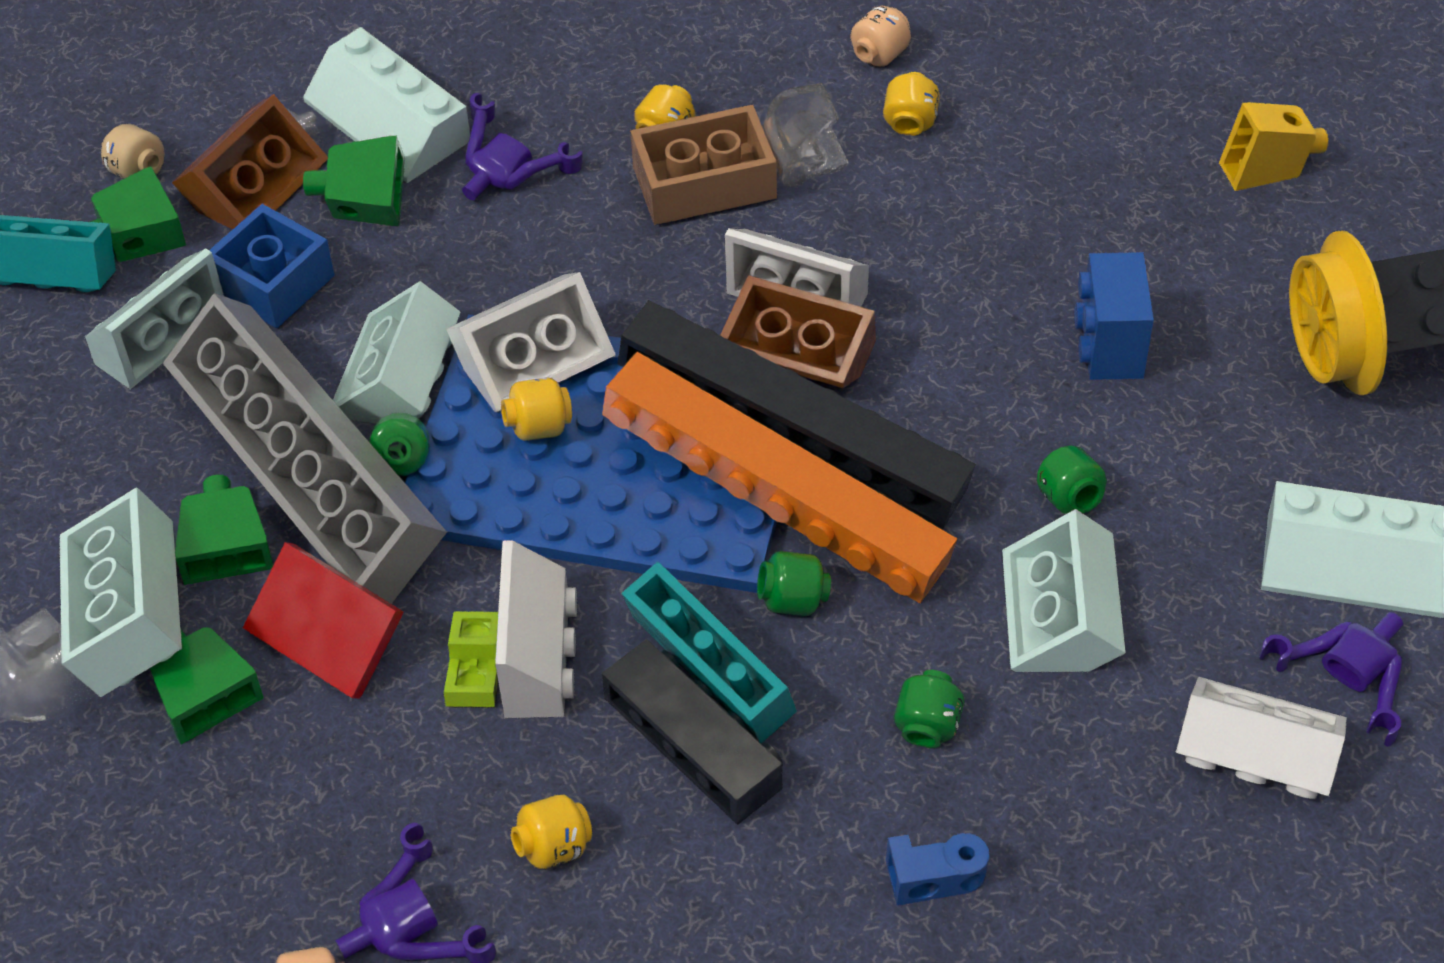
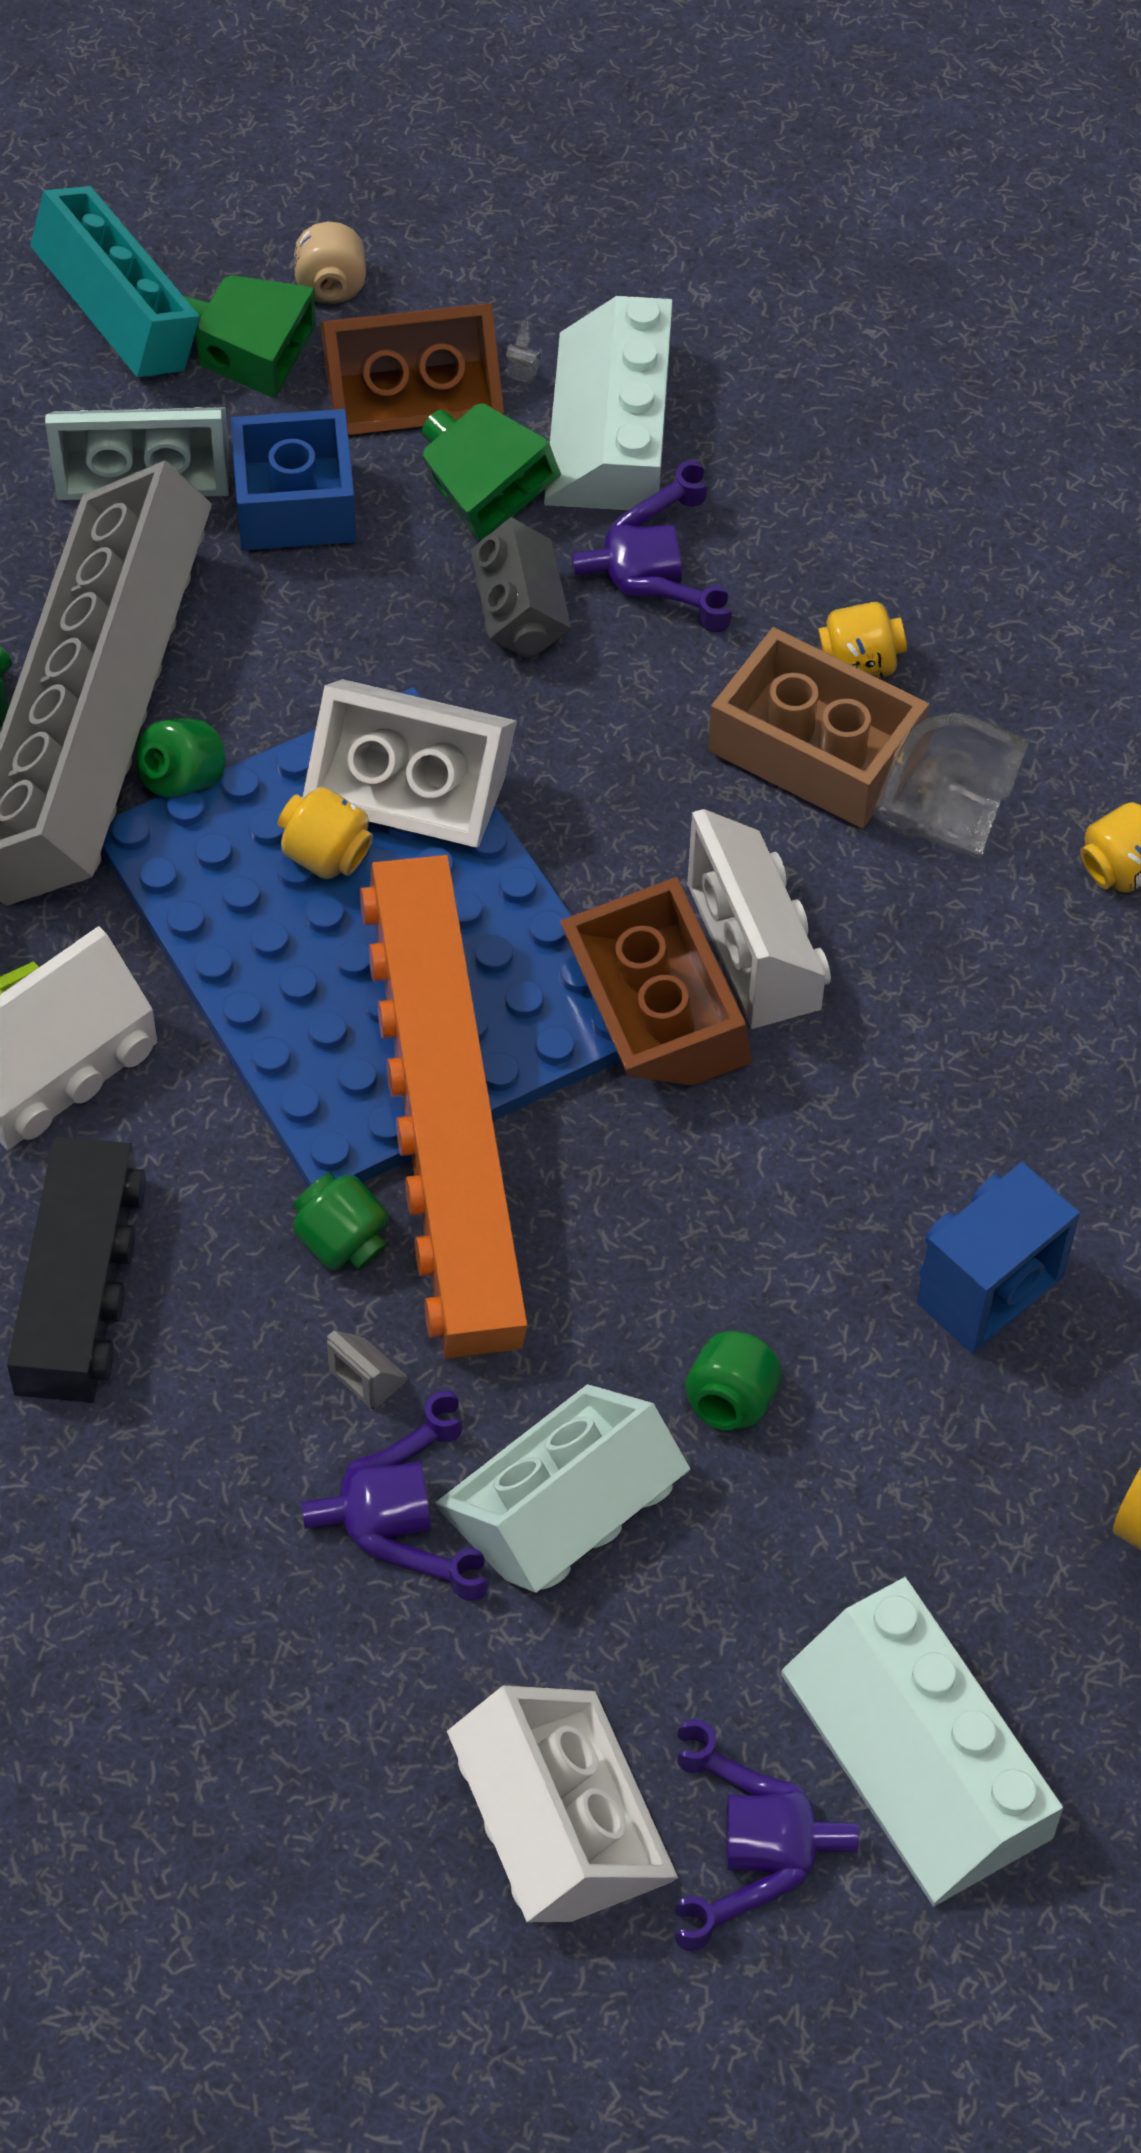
camera: 45 degrees right, 5 degrees up
(397, 356) = (285, 675): light aqua slope -> none
(465, 223) = (520, 589): none -> dark grey brick
(709, 652) = (171, 1211): teal brick -> none
(815, 418) = (547, 1062): black brick -> none
(896, 642) = (363, 1368): none -> light grey slope
(929, 709) = (296, 1459): green head -> none
(936, 868) = (101, 1610): blue leg -> none
(998, 683) = (389, 1500): none -> dark purple piece

